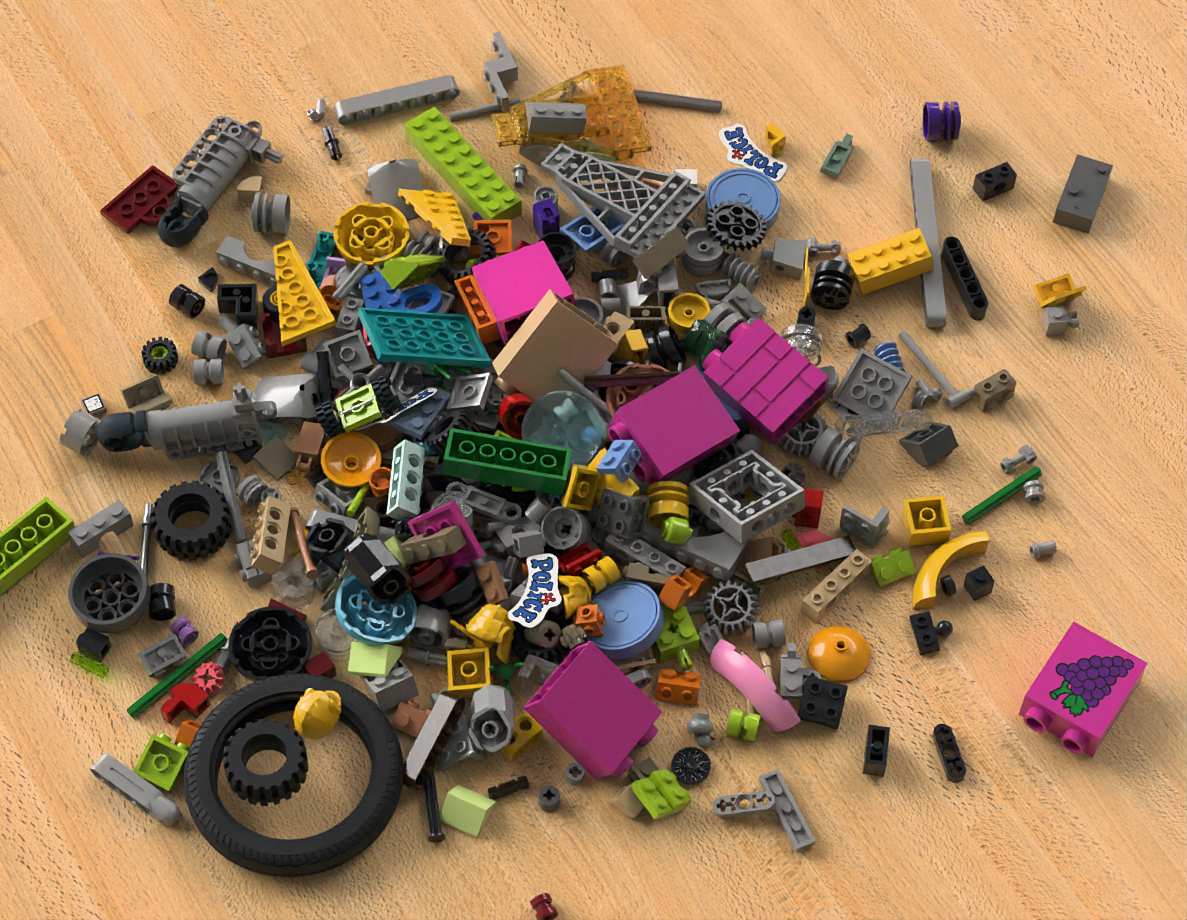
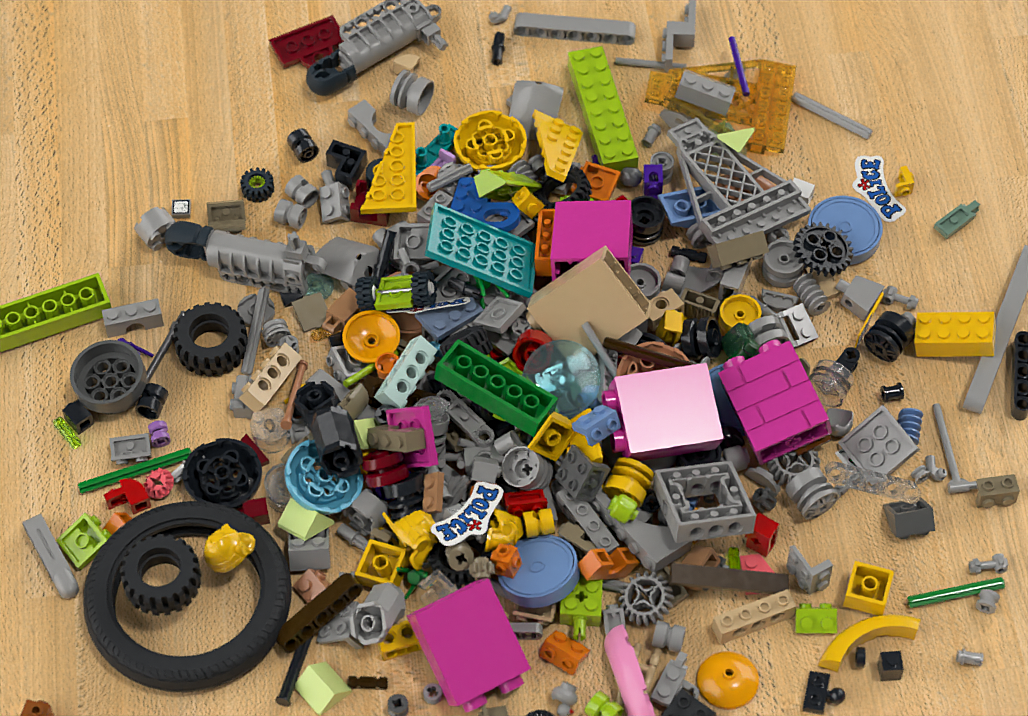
camera: 25 degrees right, 0 degrees up
(209, 279) = (333, 132): black tile -> none
(441, 277) = (527, 202): none -> yellow bracket
(521, 221) = (631, 176): none -> dark grey piece
(574, 84) = (739, 67): none -> dark purple bar
(608, 150) = (737, 139): none -> yellowish green slope
(780, 456) = (763, 478): none -> light grey tile

